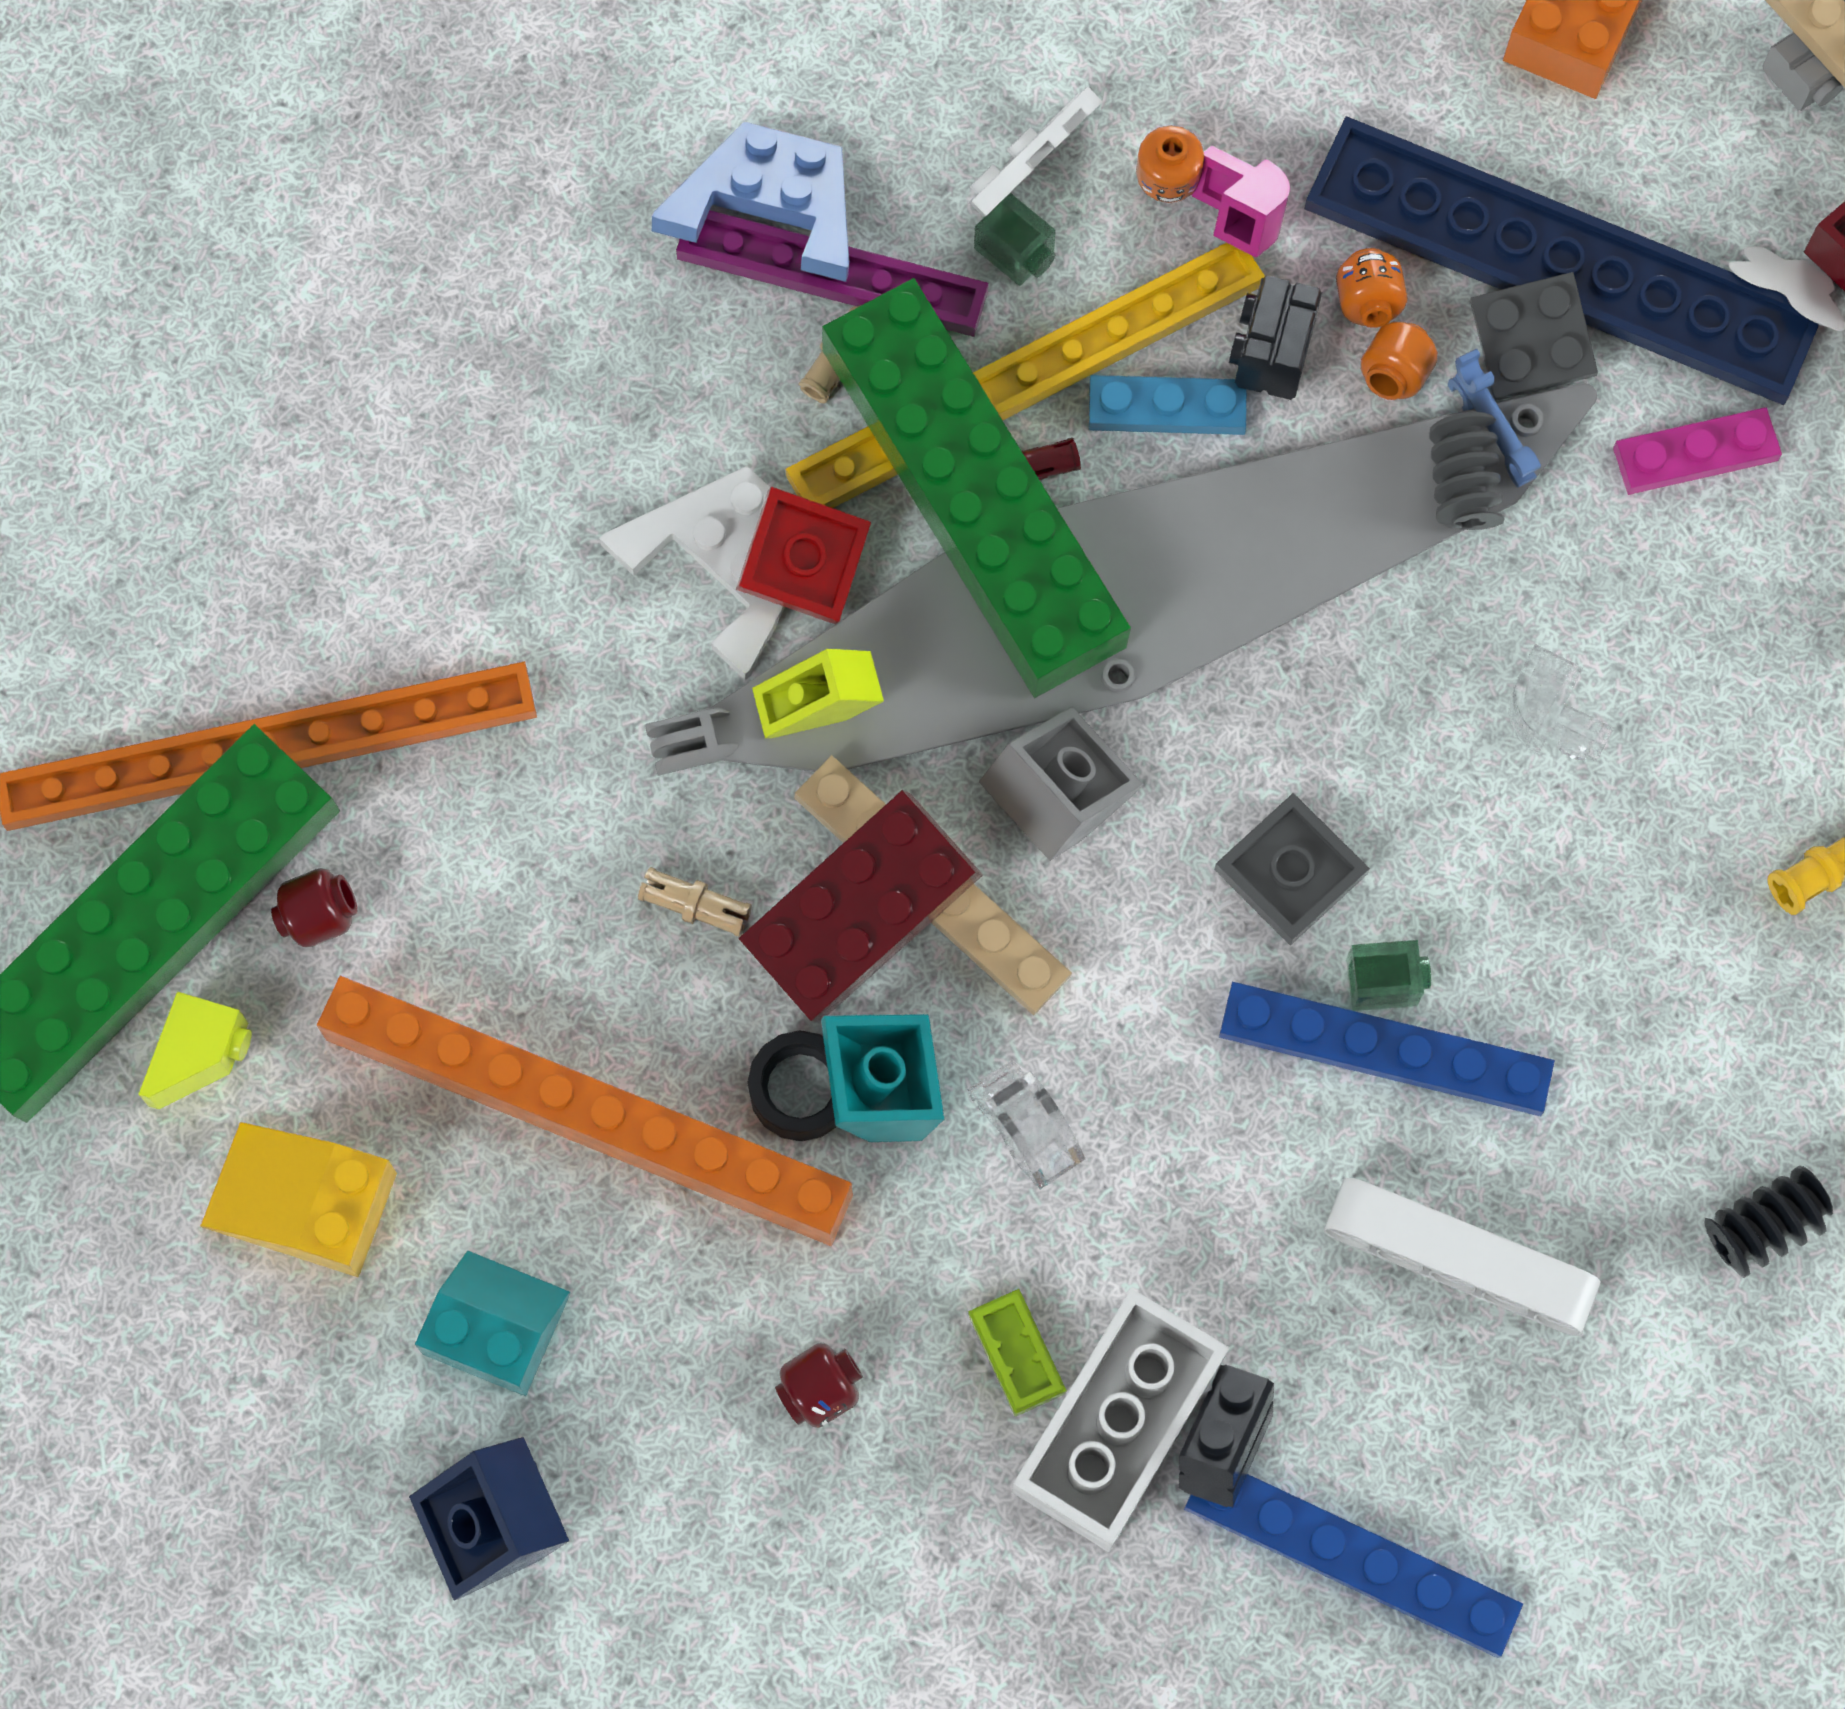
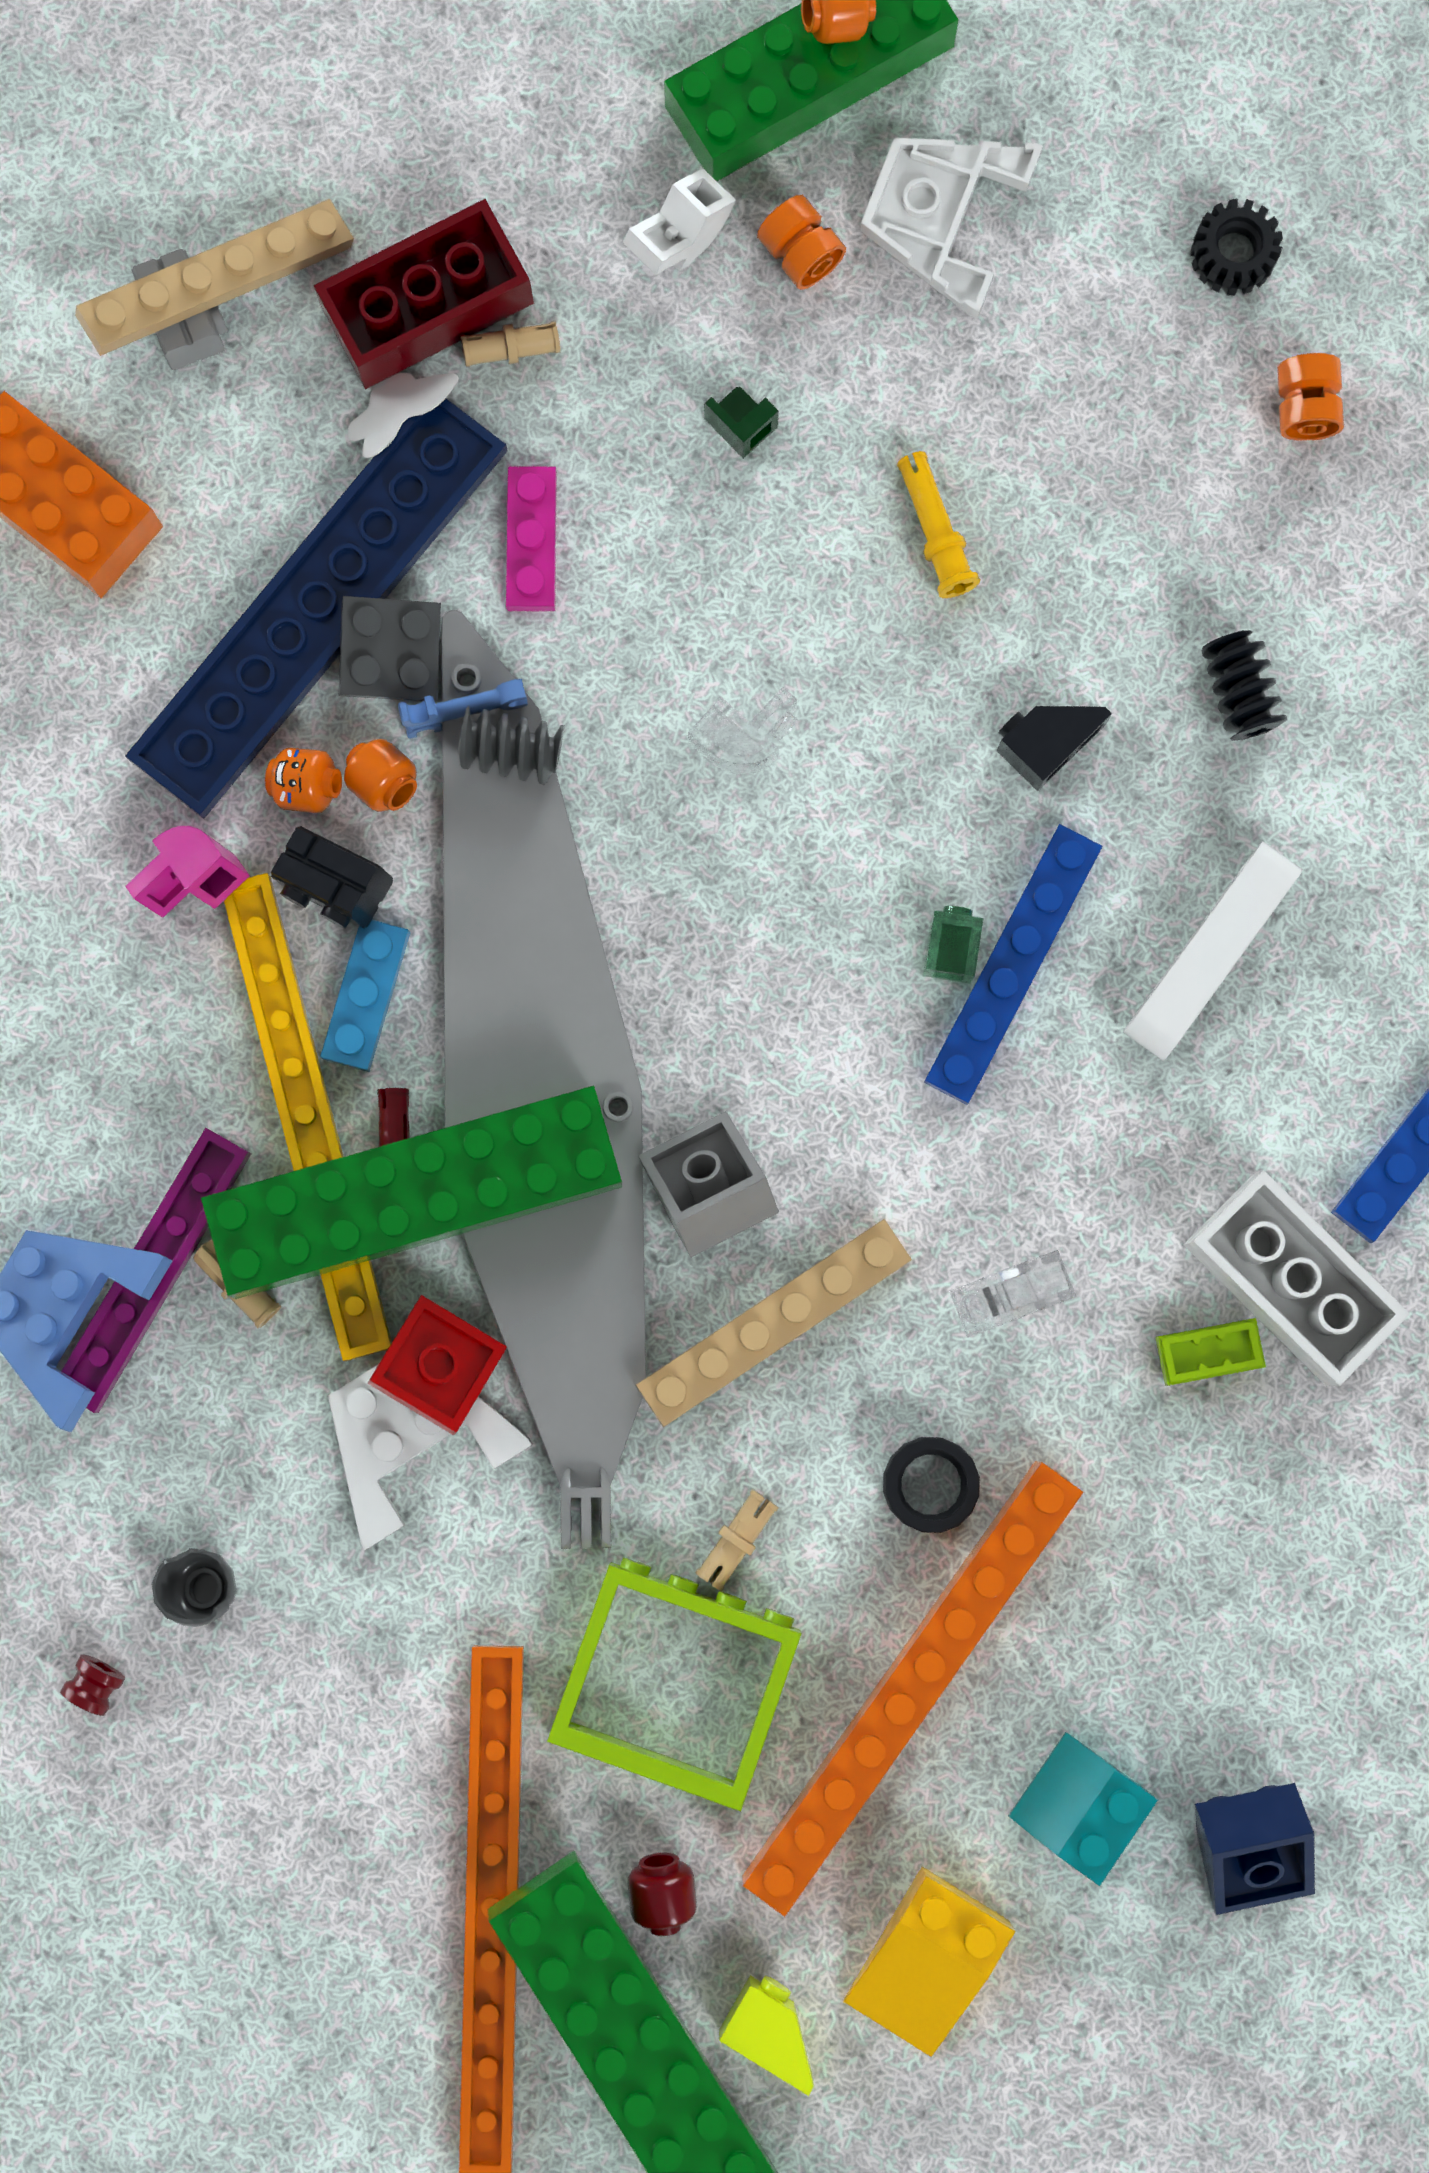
camera: 75 degrees left, 10 degrees up
(407, 316) = (92, 1685): none -> dark red wheel
(523, 383) = (194, 1587): none -> dark grey hair
(621, 904) = (650, 1763): none -> lime window
(818, 692) = (576, 1383): neon yellow slope -> none
(819, 1385) = (1203, 1531): dark red head -> none
(860, 906) = (791, 1392): dark red brick -> none
(883, 1076) = (950, 1411): teal slope -> none
(1016, 240) = (168, 1090): clear green brick -> none
(1030, 151) = (91, 1054): white wing -> none
(1169, 163) = (135, 944): orange head -> none
(1226, 1435) = (1331, 1192): black brick -> none
(1291, 869) = (835, 1001): dark grey plate -> none
(1645, 1028) = (1048, 739): none -> black slope

